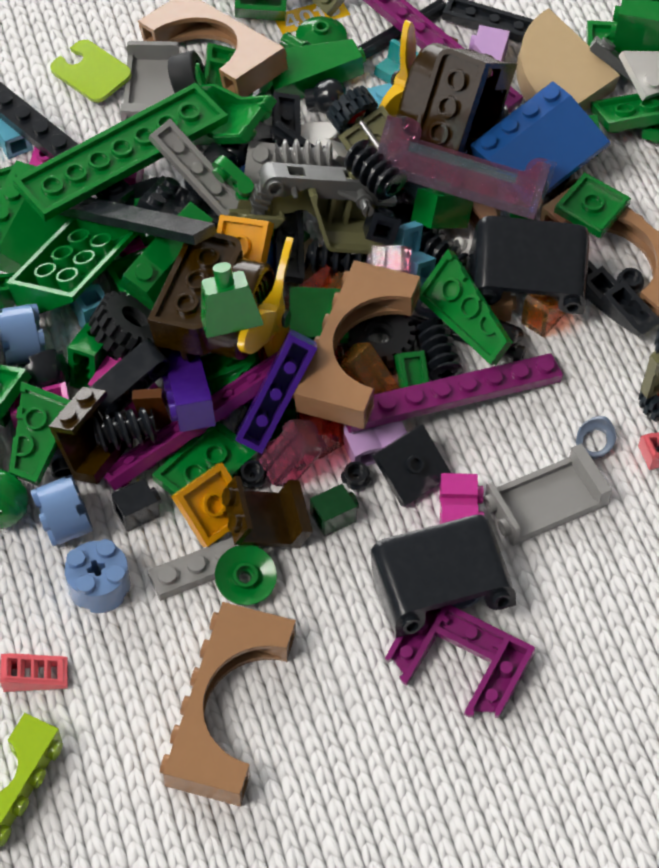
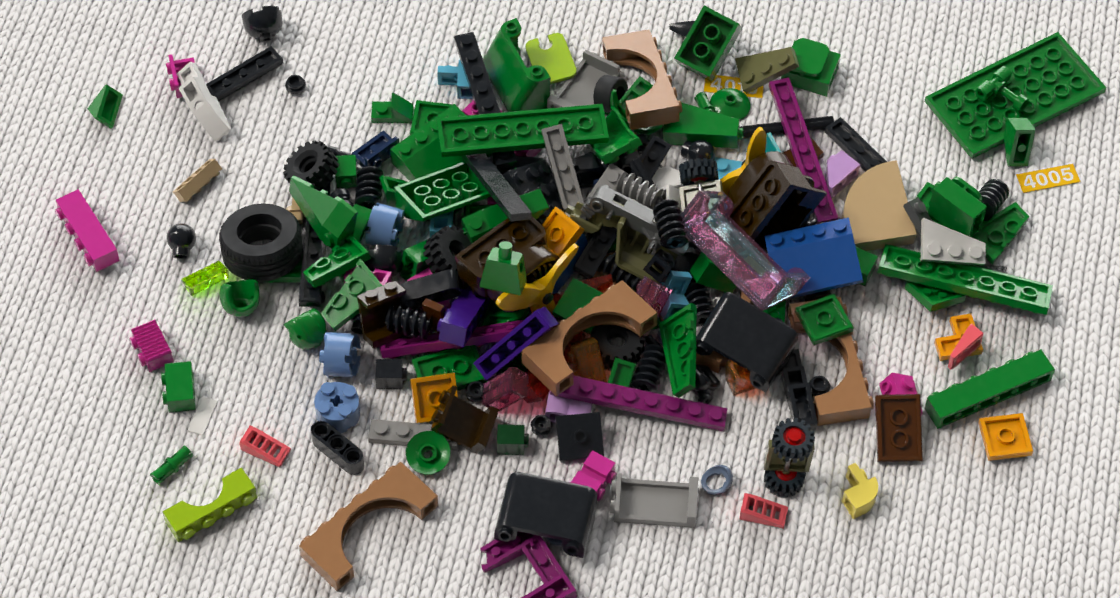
camera: 30 degrees right, 0 degrees up
(68, 102) = (516, 84): none -> green windscreen
(118, 615) = (339, 456): none -> black beam
(228, 172) = (578, 178): green plate -> none

